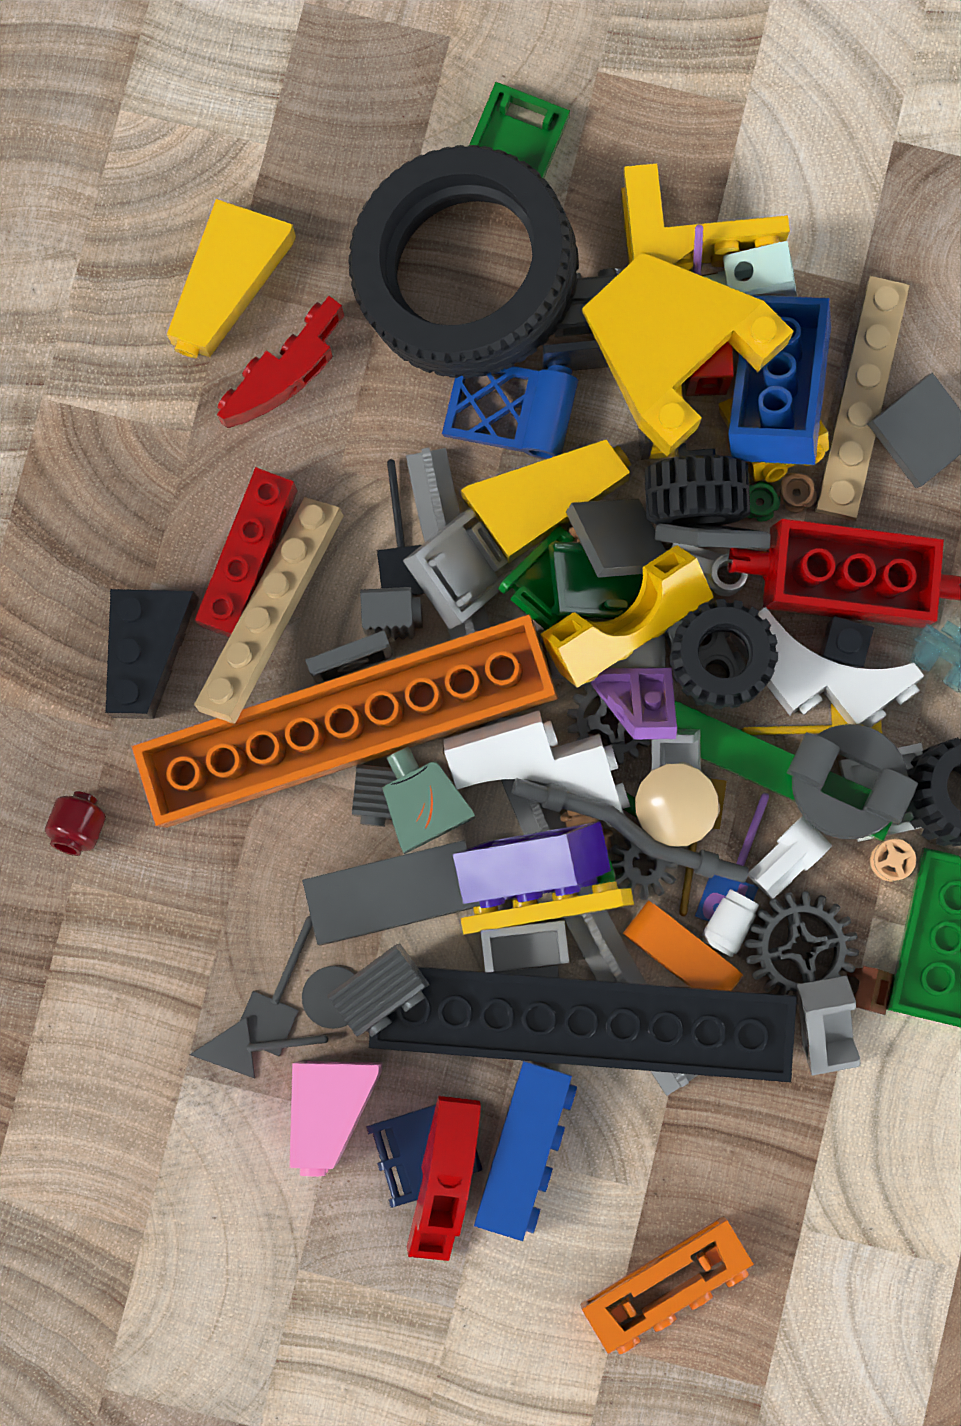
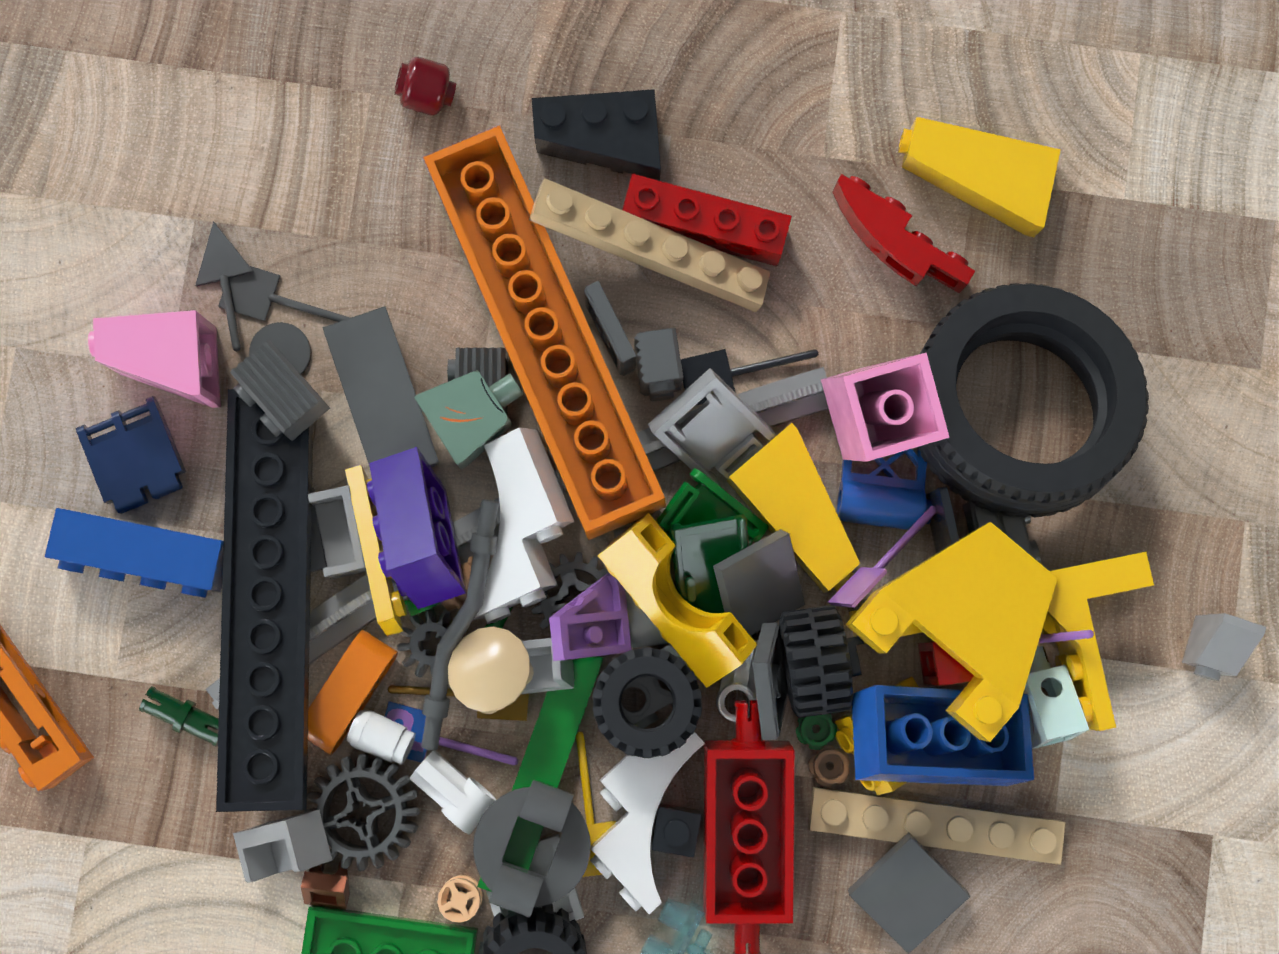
camera: 75 degrees right, 0 degrees up
(446, 1178) = (102, 475): red slope -> none
(462, 396) = (885, 408): none -> bright pink slope
(517, 137) = (1162, 444): green container -> none
(624, 434) = (866, 578): none -> medium lavender piece
(691, 1119) = (181, 715): none -> dark green pin
(716, 109) = (1221, 644): none -> light grey slope

